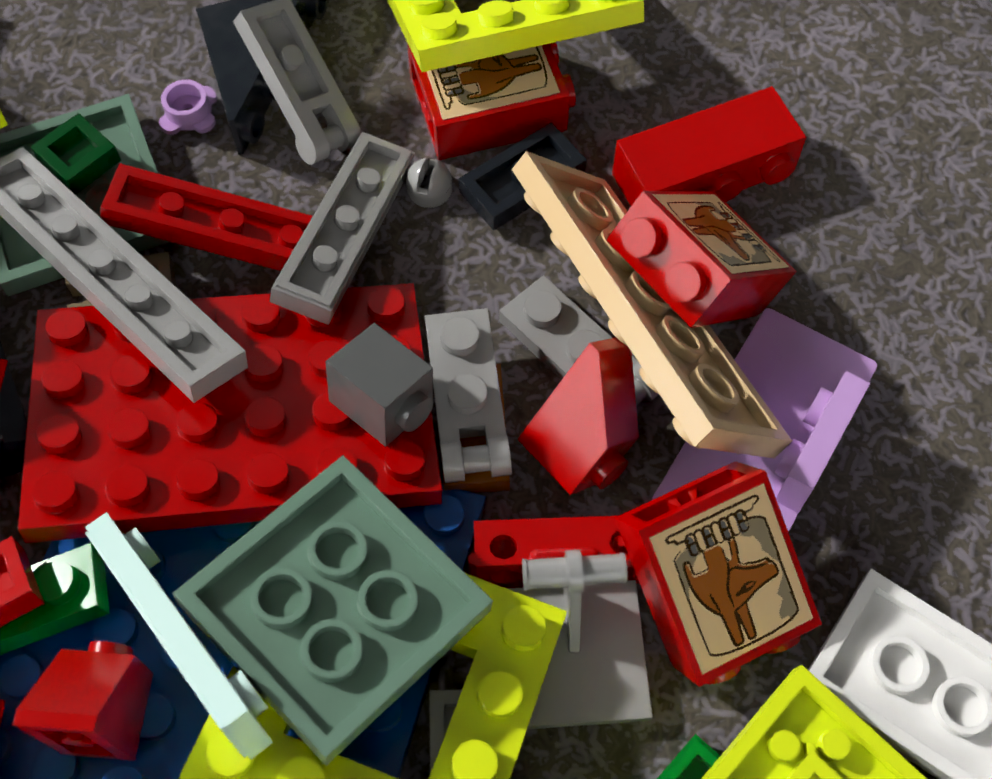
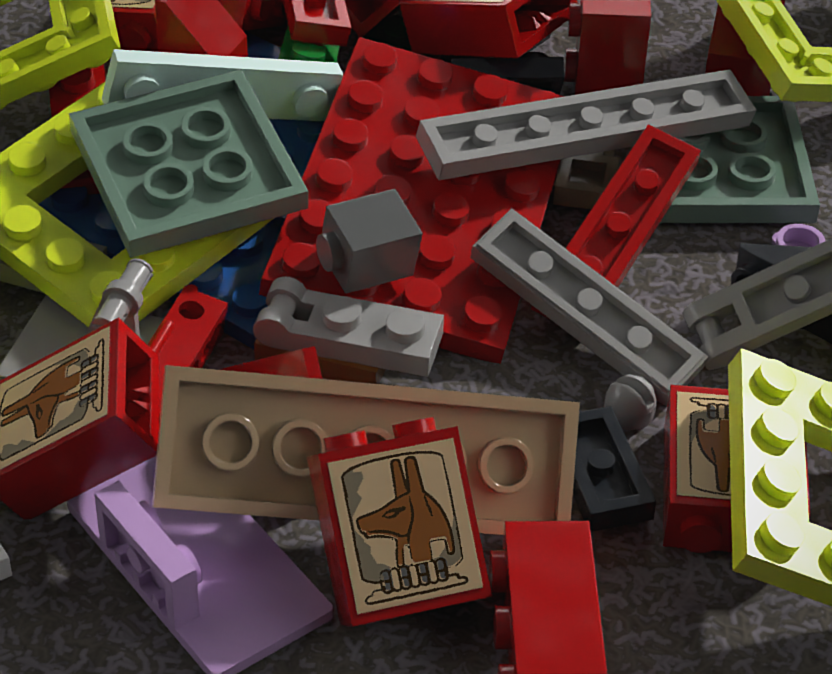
camera: 110 degrees right, 20 degrees down
(76, 153) = (738, 143): dark green plate -> none

